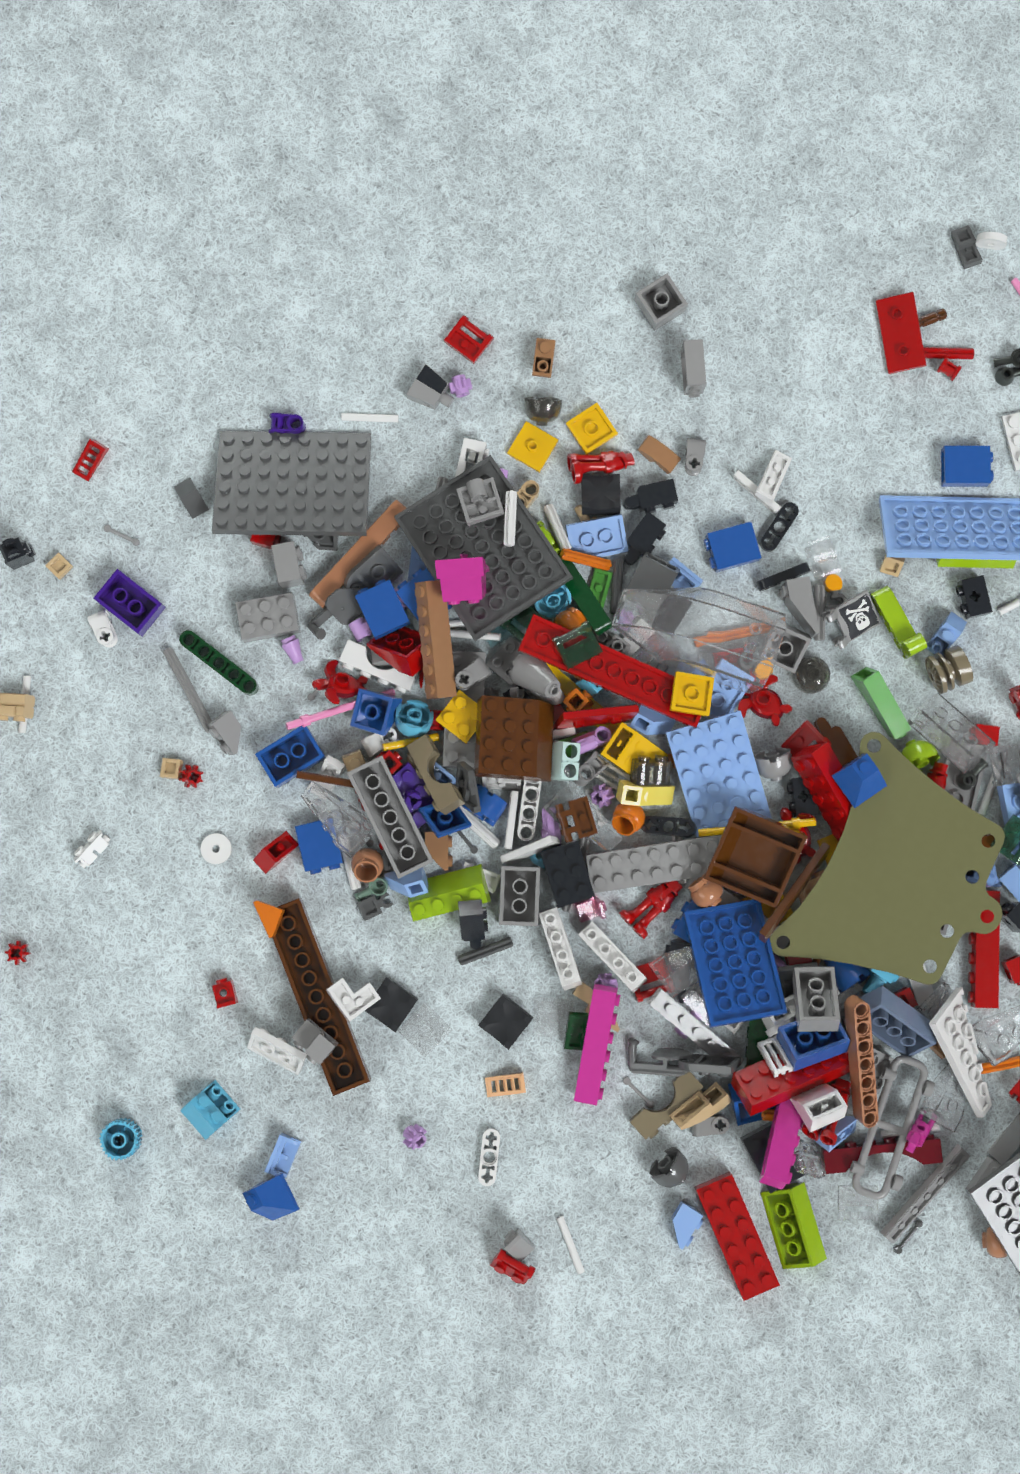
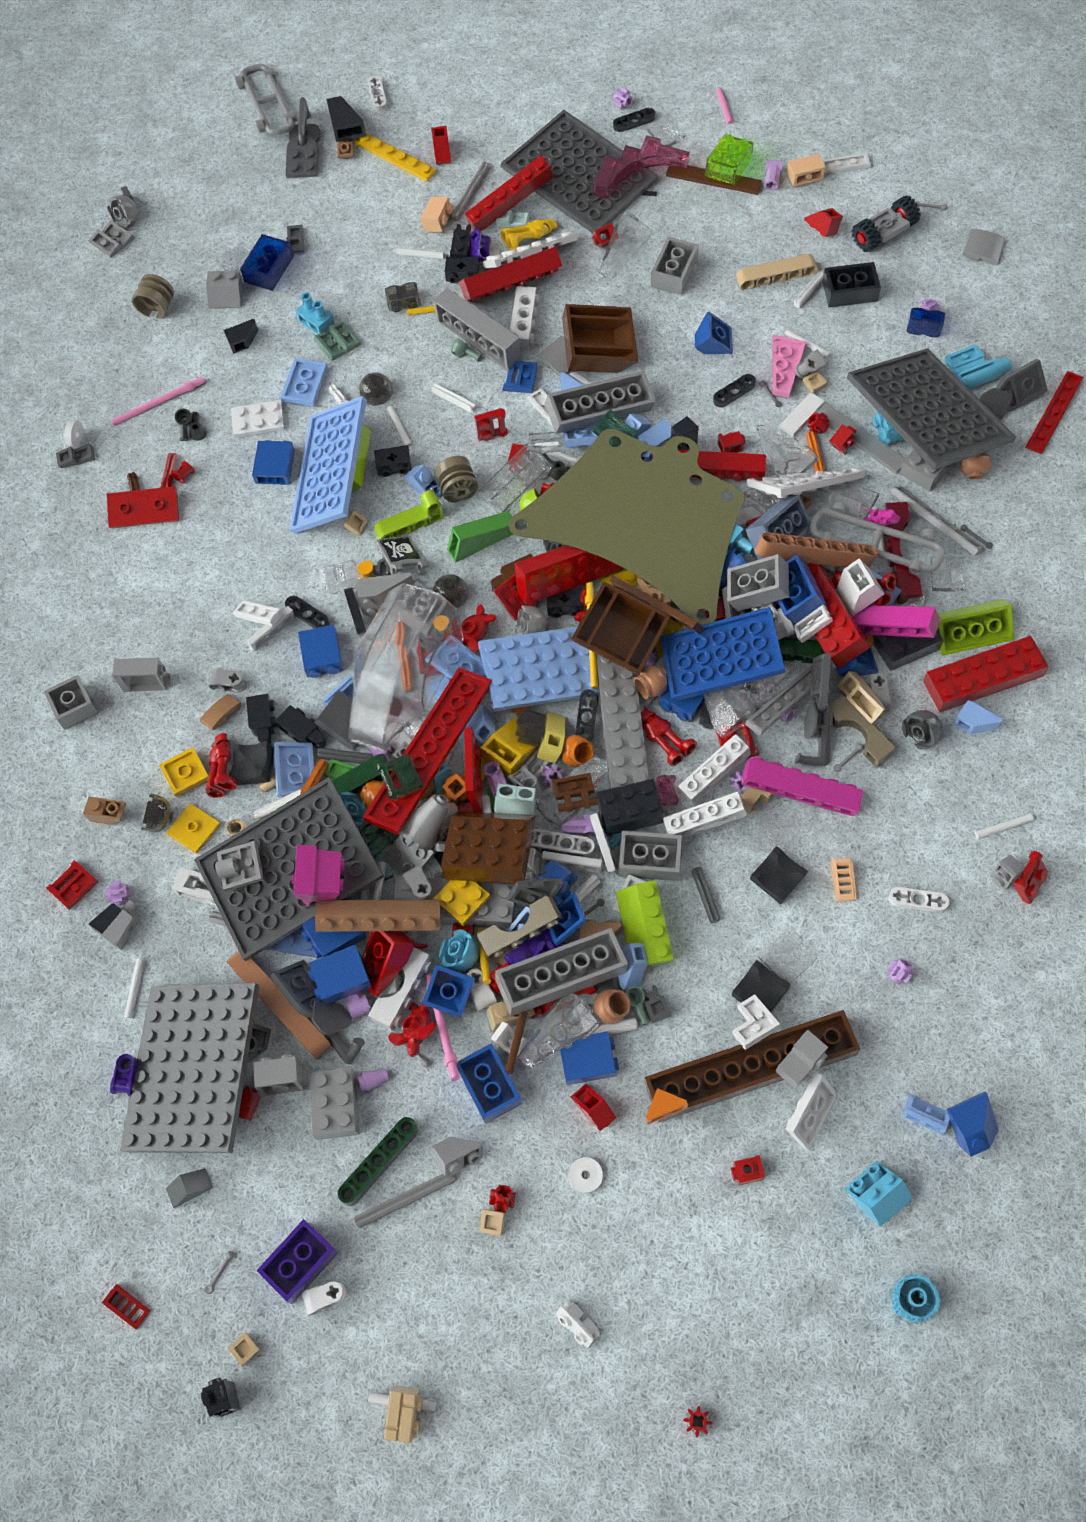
camera: 80 degrees left, 20 degrees down
(472, 923) = (675, 896): black hinge -> none
(510, 518) = (262, 836): white axle -> none
(575, 1030) = (788, 807): dark green plate -> none
(692, 694) = (458, 679): yellow plate -> none
(859, 780) = (551, 535): blue slope -> none

